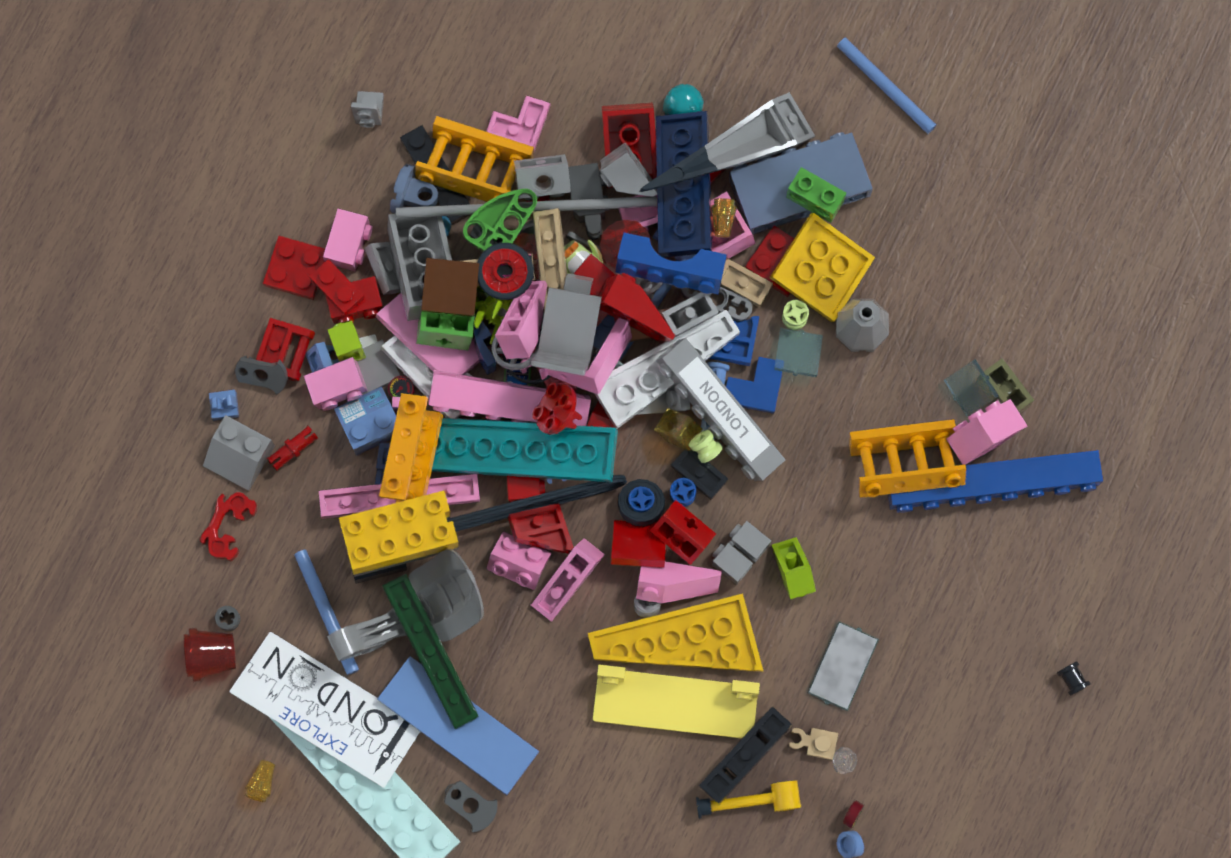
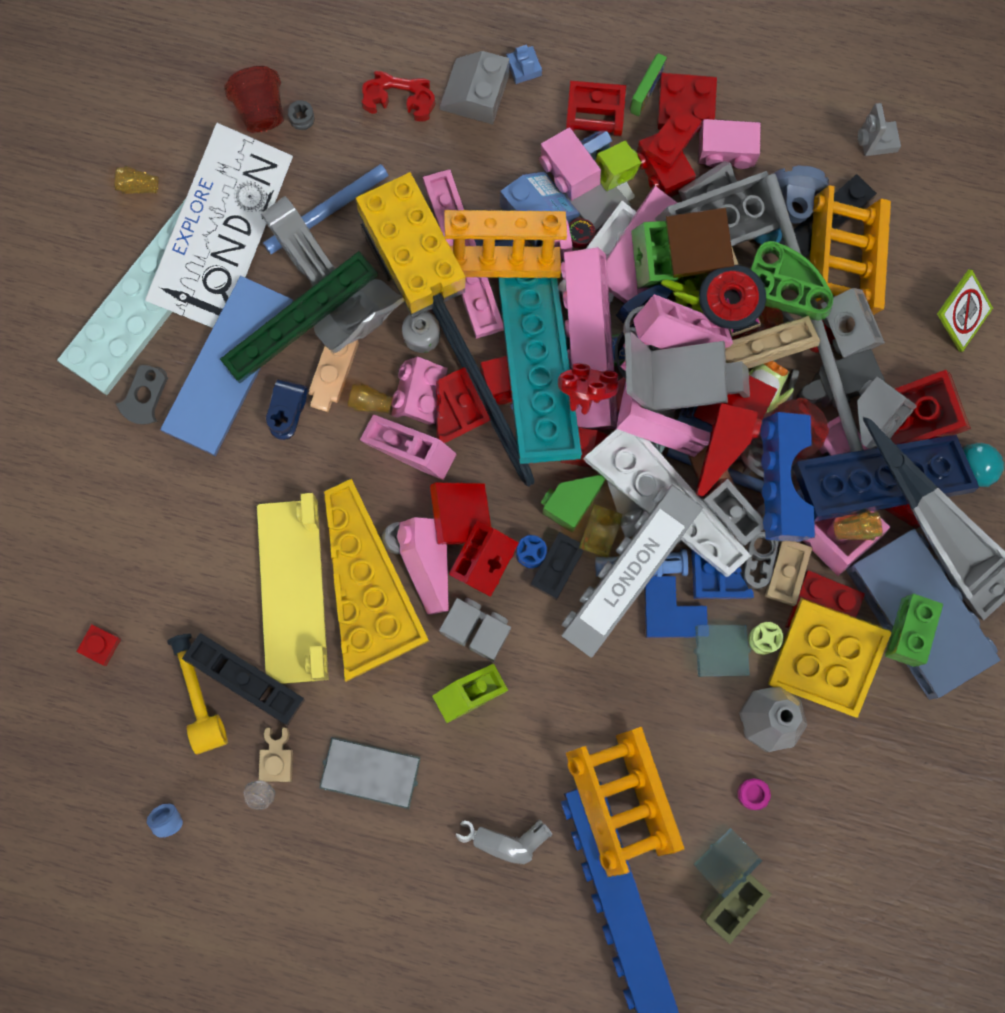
camera: 75 degrees right, 0 degrees up
(273, 298) = (647, 84): none -> bright green tile
(276, 373) = (564, 74): dark grey piece -> none
(292, 448) = (492, 138): red pin -> none
(470, 539) = (421, 332): none -> light grey head
(491, 639) = (331, 376): none -> light nougat hinge
(506, 677) = (286, 403): none -> dark blue piece
(517, 606) = (368, 399): none -> clear yellow cone
(527, 126) = (902, 302): bright pink tile -> none
(548, 80) = (965, 310): none -> piece
(641, 492) = (518, 501): black wheel -> none
(647, 449) = (571, 500): none -> bright green slope
(705, 446) = (586, 563): yellowish green wheel -> none
(853, 814) = (199, 816): dark red tile -> none
(920, 355) = (754, 794): none -> dark pink tile
(925, 564) = (505, 847): none -> light grey arm
(986, 431) = (678, 890): bright pink brick -> none

